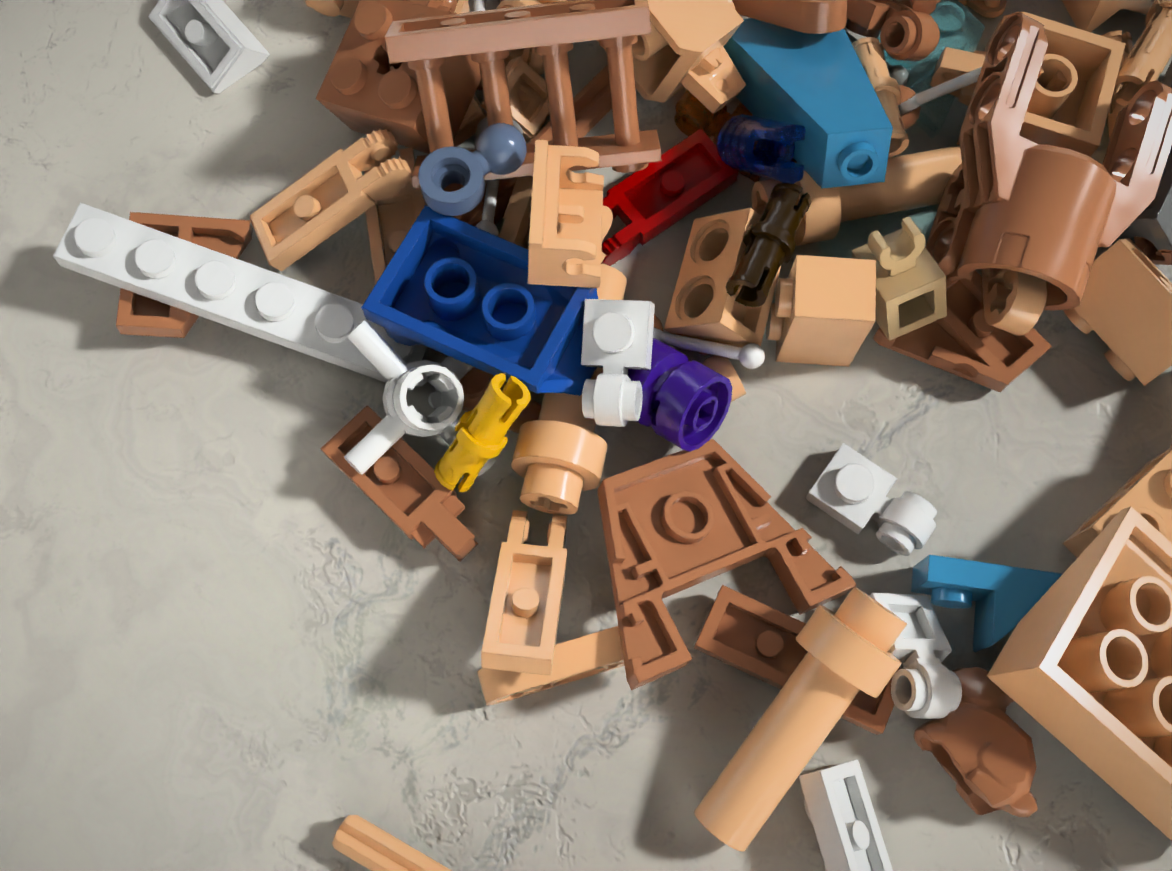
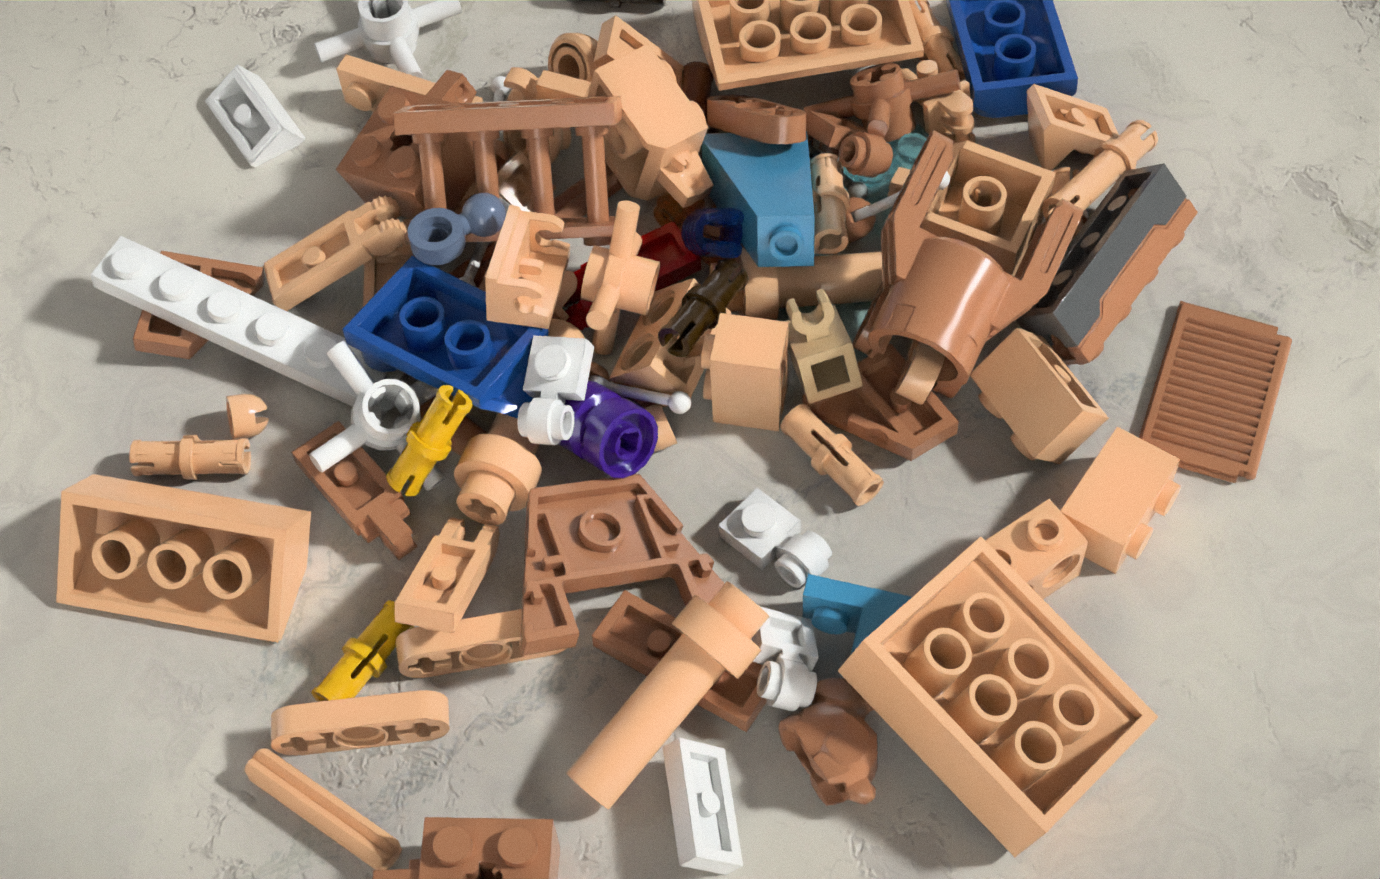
camera: 10 degrees right, 15 degrees down
(205, 461) = (190, 457): none -> light nougat pin
(214, 587) = (181, 556): none -> light nougat slope
(260, 405) = (241, 415): none -> light nougat hinge
(441, 691) = (362, 657): none -> yellow pin
(452, 774) = (360, 722): none -> light nougat beam
(665, 214) = (618, 279): none -> light nougat bar
(917, 395) = (831, 454): none -> light nougat pin

